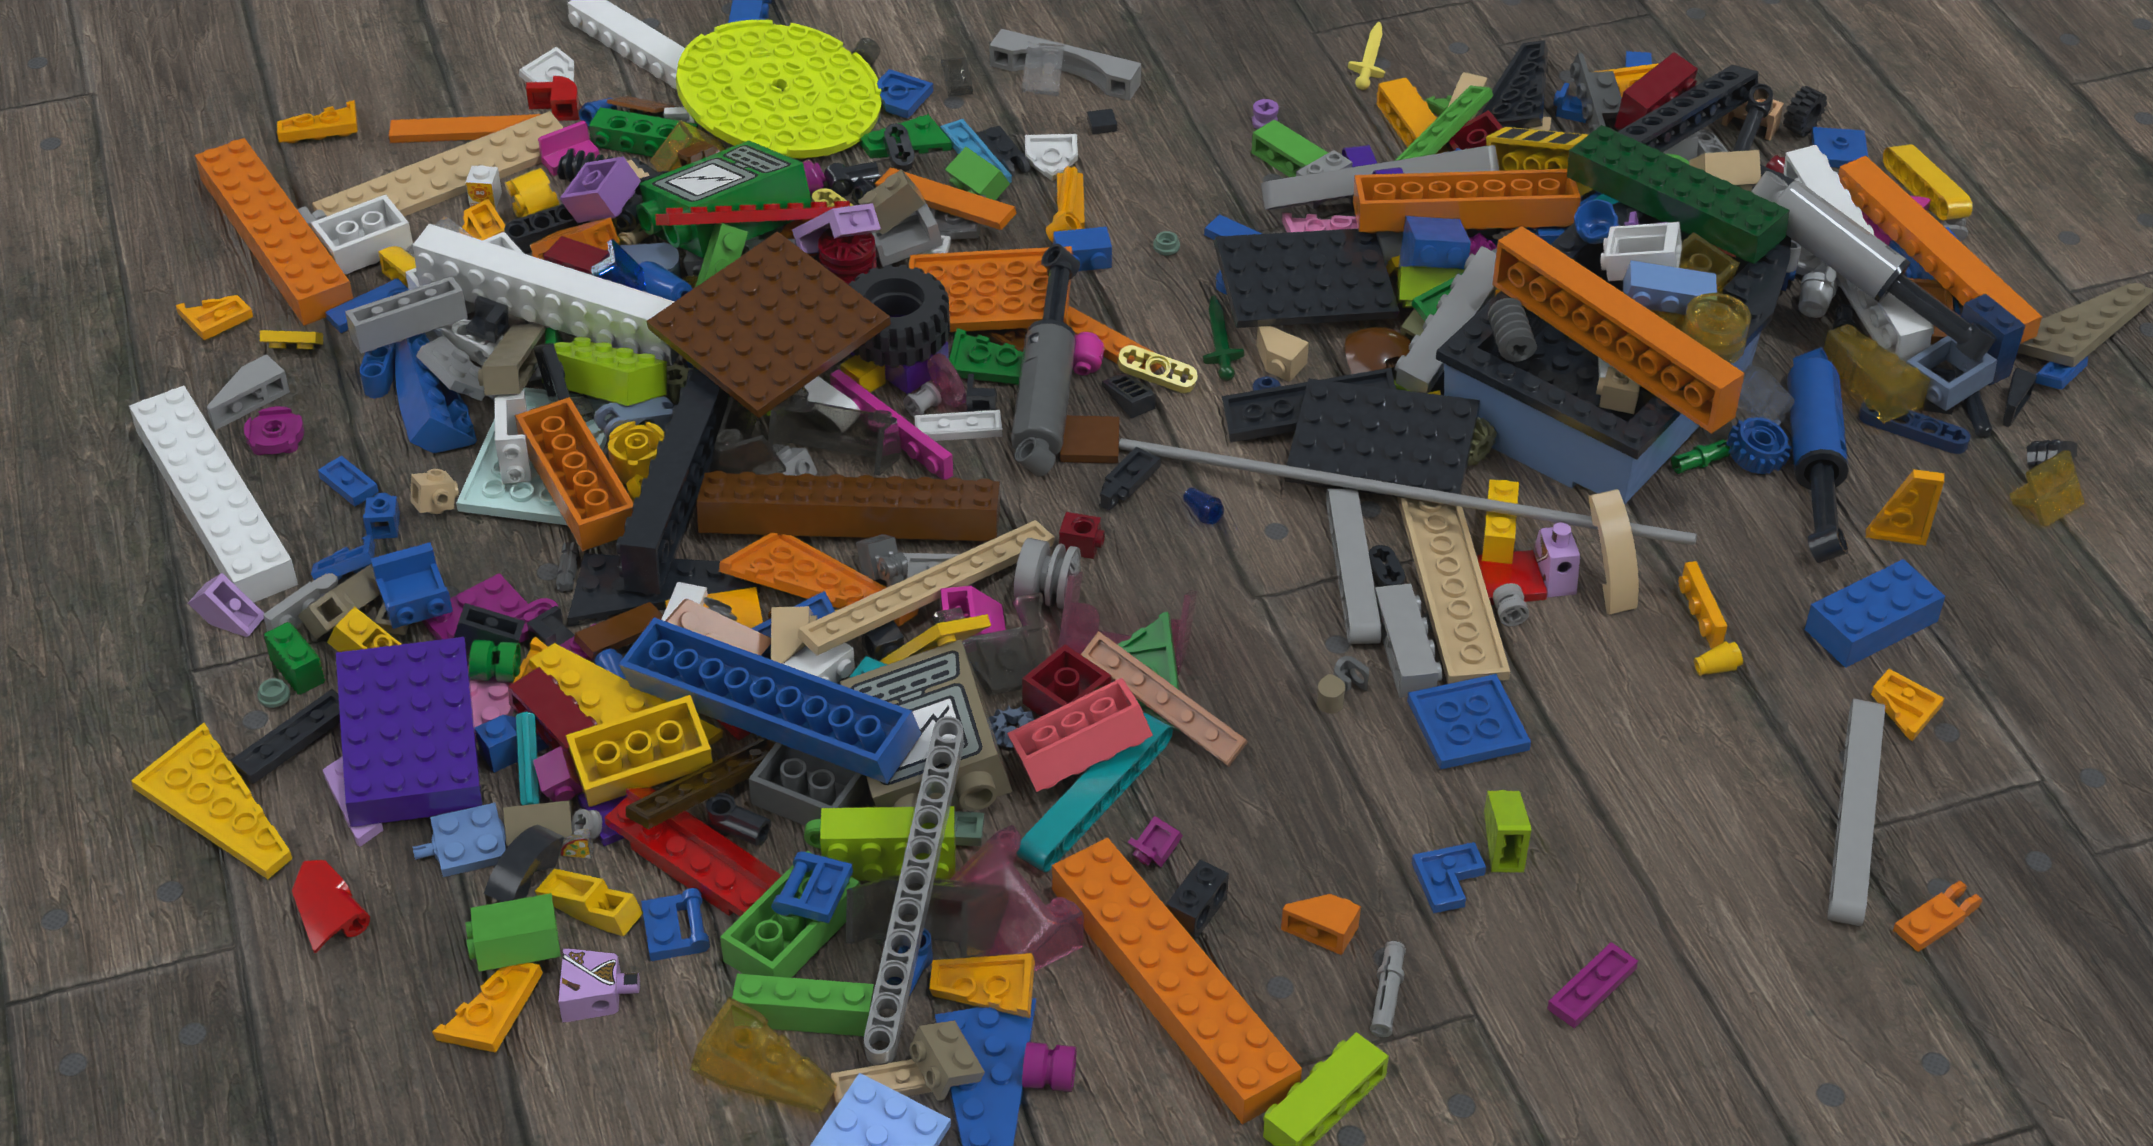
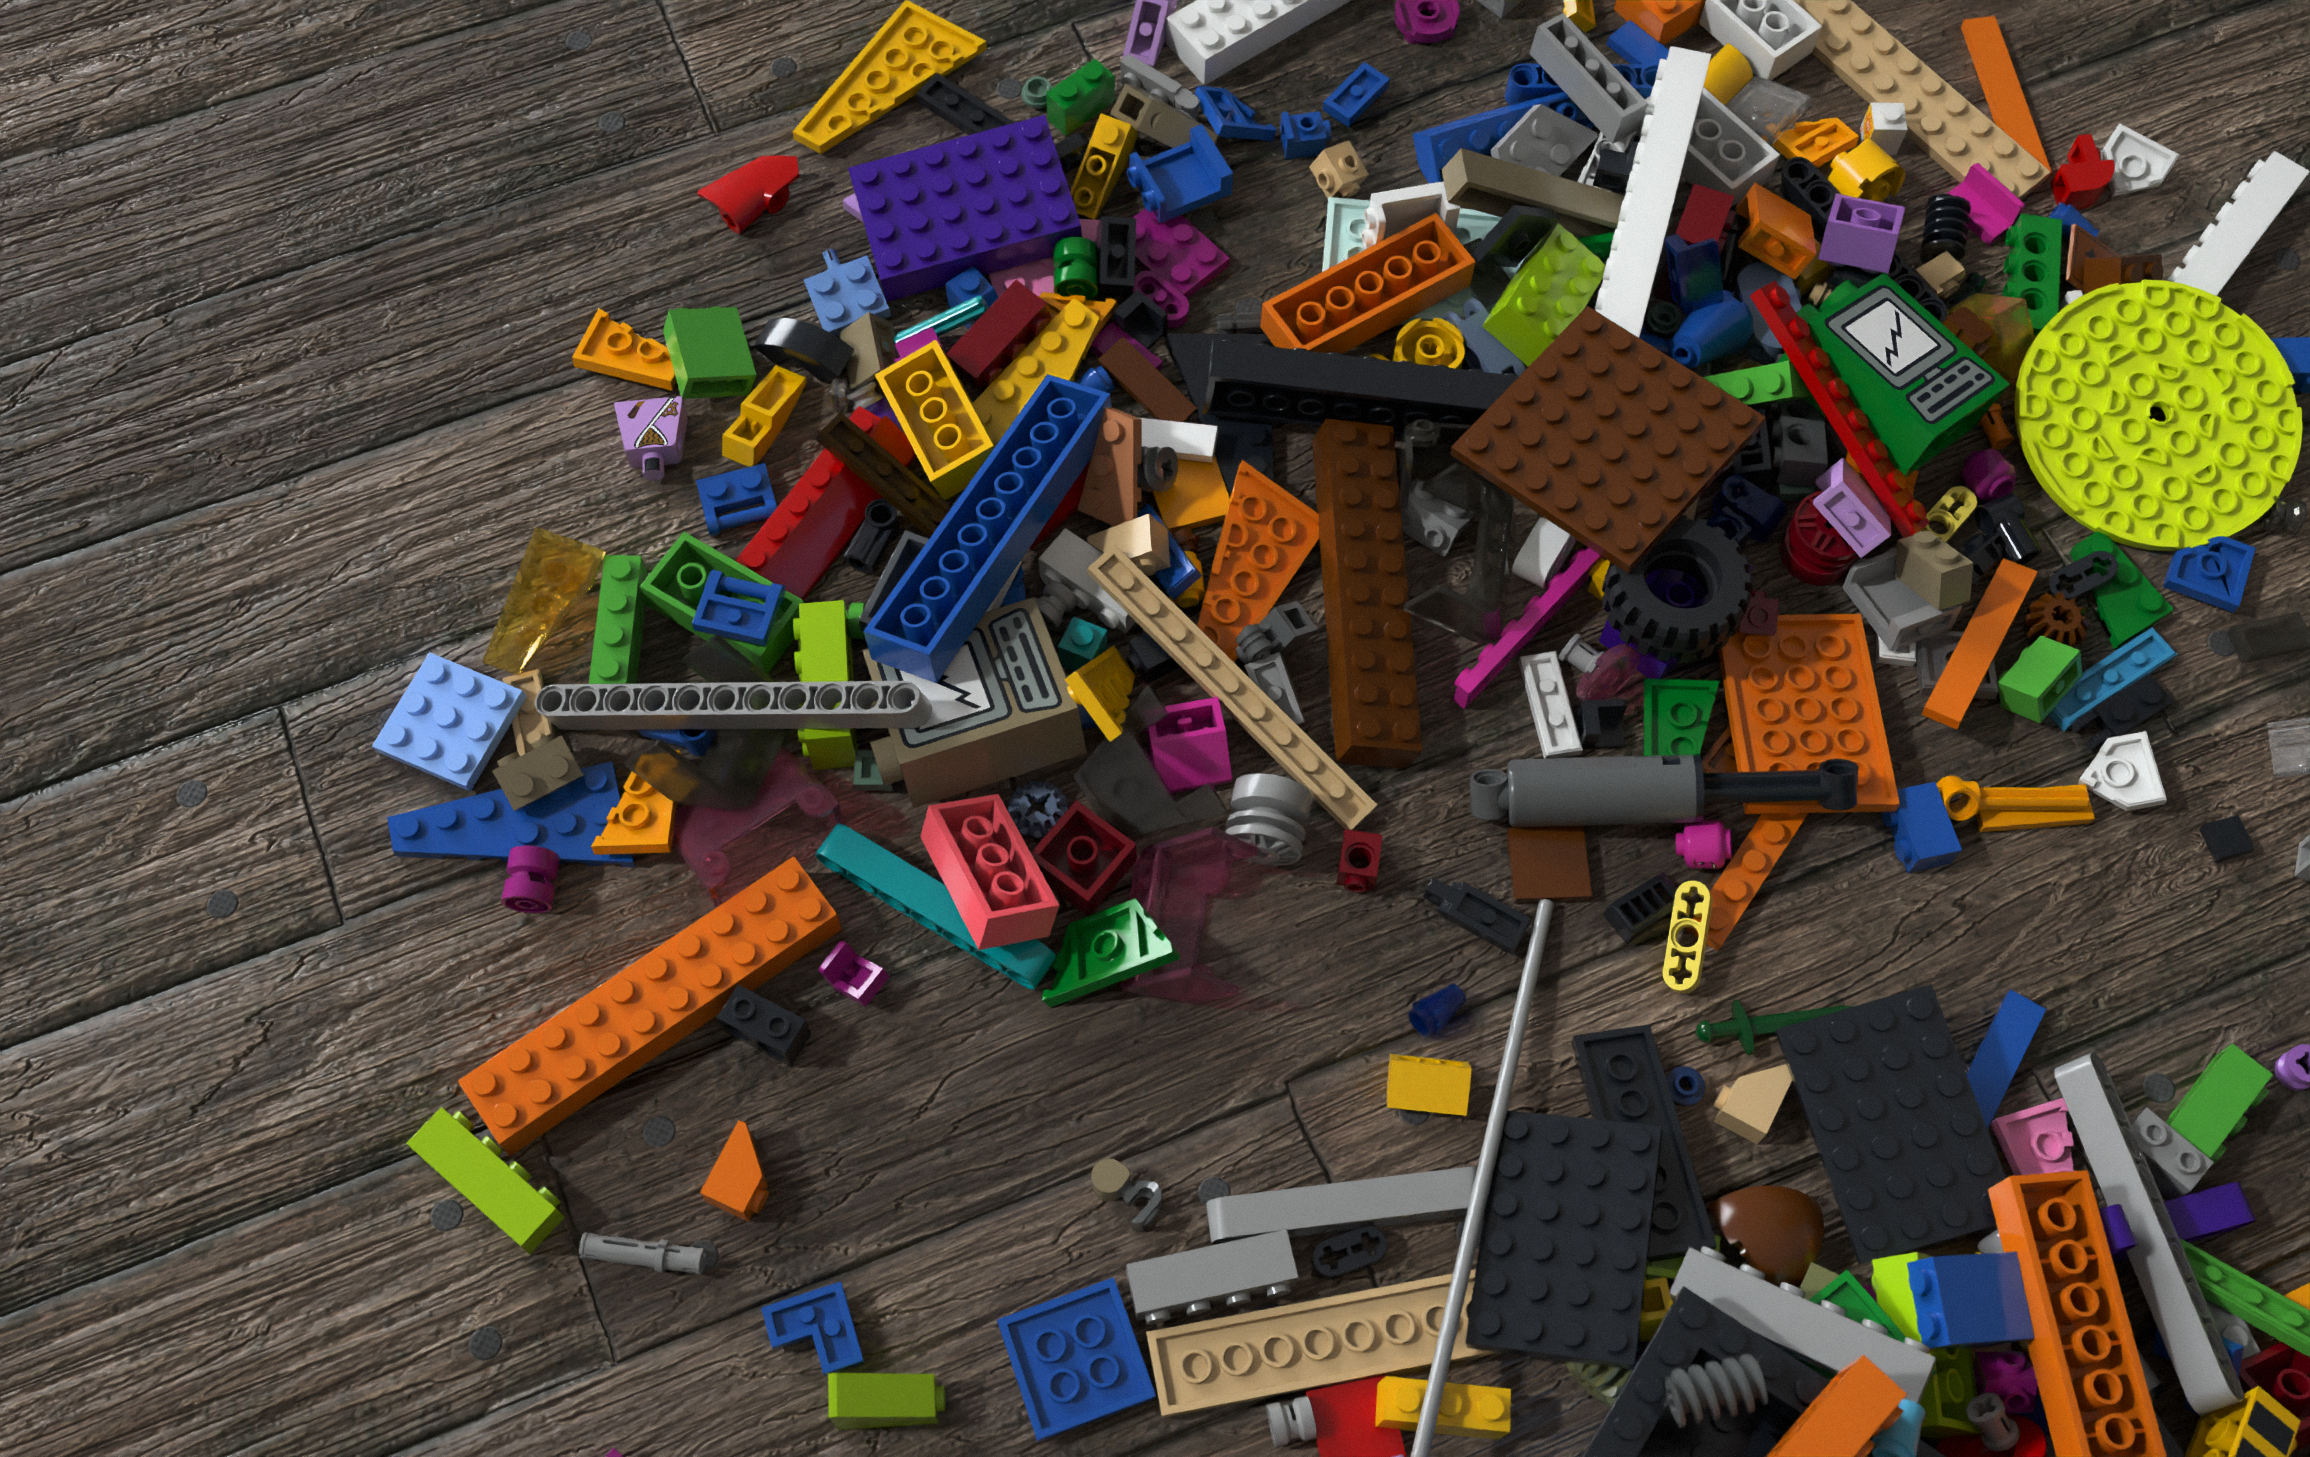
camera: 85 degrees right, 20 degrees up
(657, 84) = (2121, 270): none -> reddish brown brick
(931, 164) = (2057, 620): none -> reddish brown gear
(1166, 243) = (1972, 933): sand green plate -> none
(1166, 699) = (1071, 970): nougat tile -> none
(1260, 514) = (1428, 1084): none -> yellow brick

